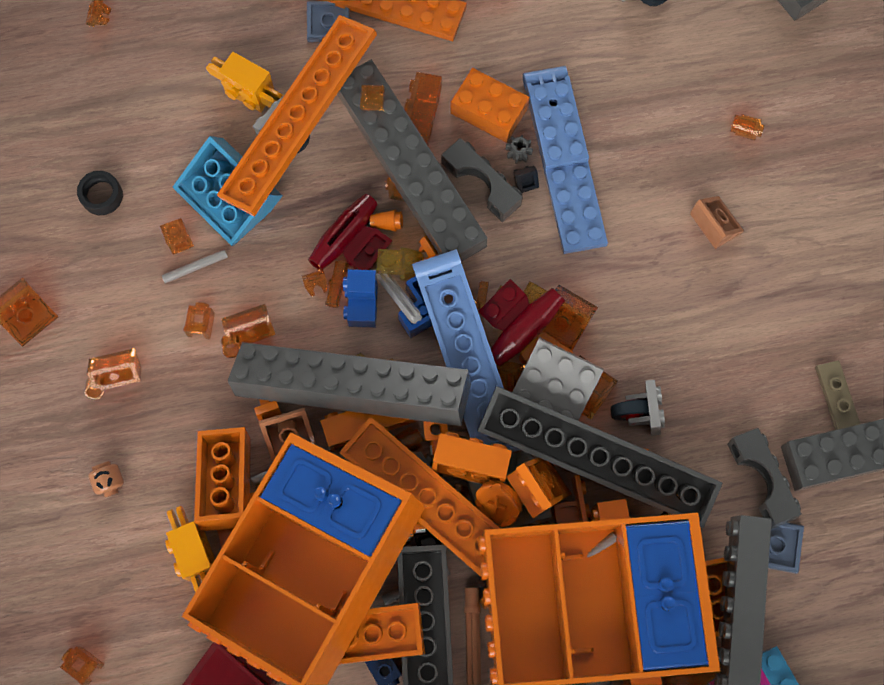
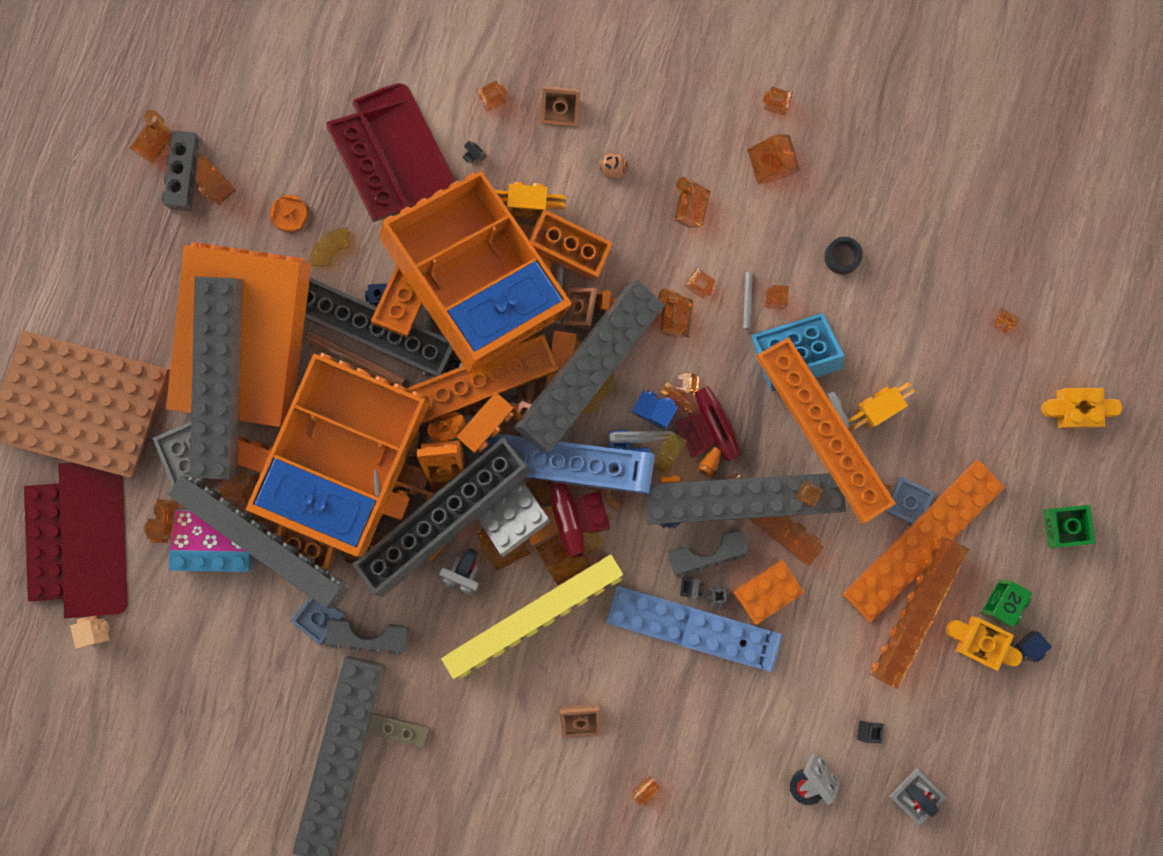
camera: 120 degrees right, 10 degrees up
(60, 575) = (560, 106): none -> nougat slope
(161, 649) = (474, 152): none -> black tile
(647, 315) = (530, 617): none -> light yellow brick

